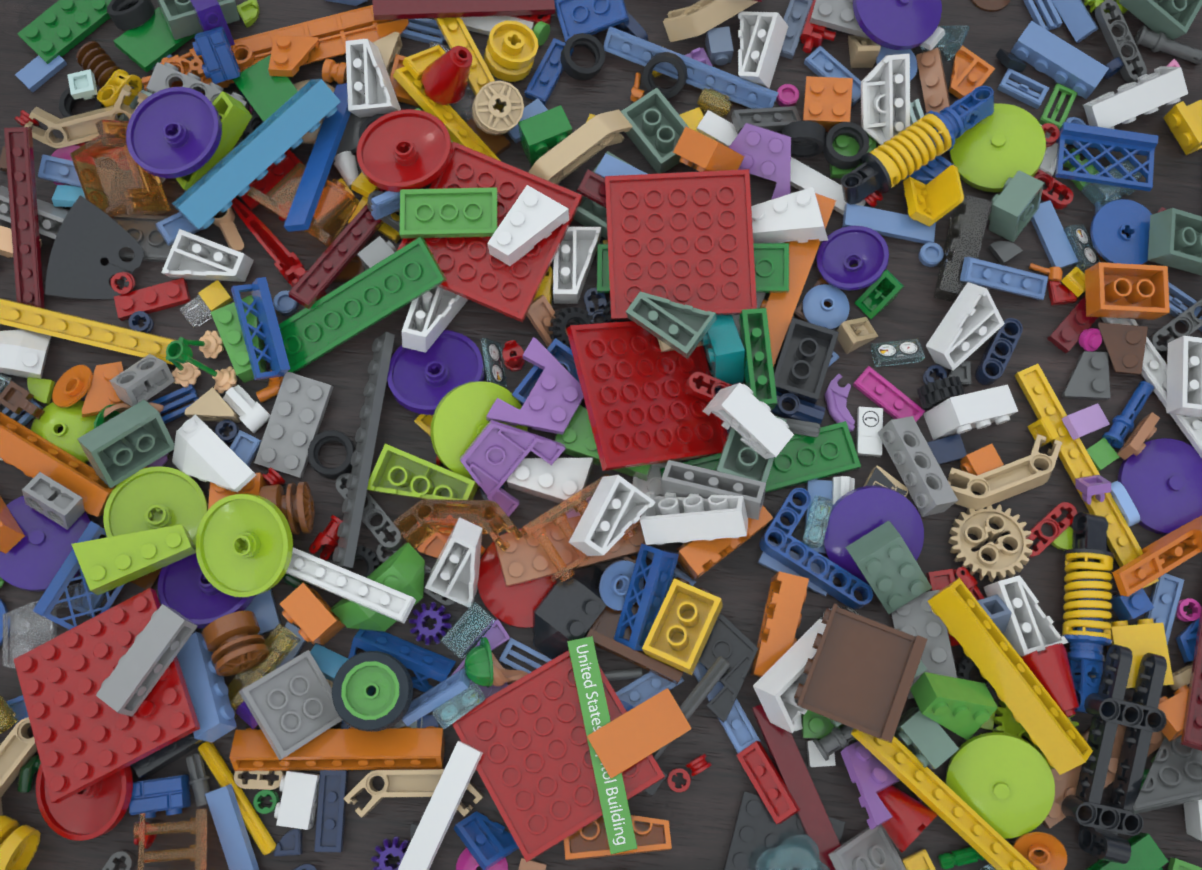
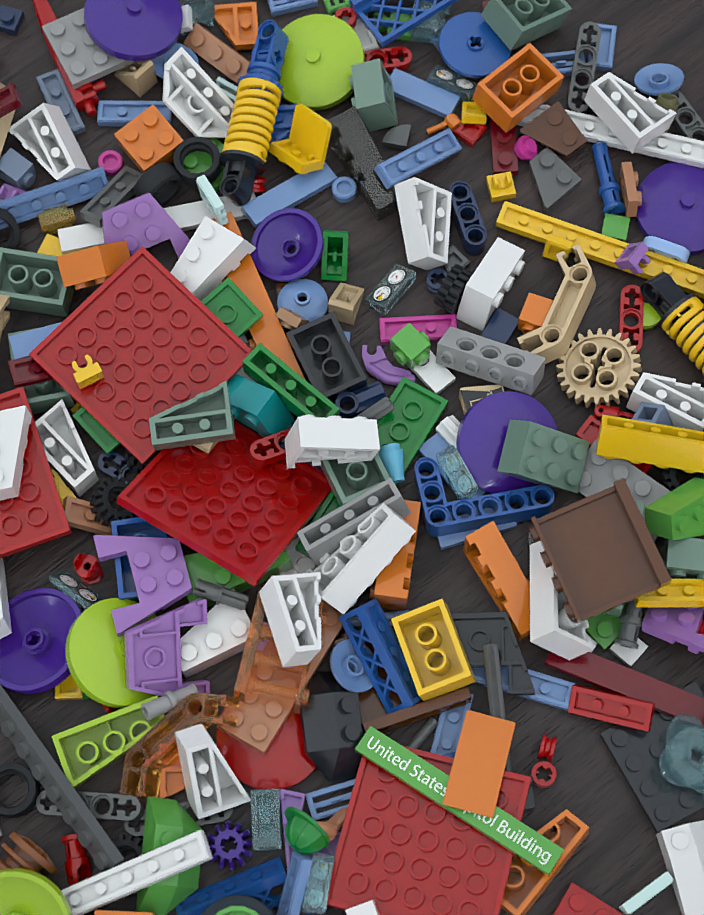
camera: 40 degrees left, 5 degrees down
(477, 492) = (166, 702): none -> light grey pin
(578, 454) = (221, 594): none -> dark grey axle
(630, 225) = (87, 375): none -> yellow tile
(780, 473) = (393, 461): none -> medium azure cone
(805, 310) = (290, 319): none -> medium nougat plate
(829, 181) = (212, 200): none -> light aqua tile
(870, 405) = (410, 346): none -> bright green brick
(1045, 351) = (501, 186): none -> yellow tile
(1085, 421) = (580, 213): lavender tile -> none

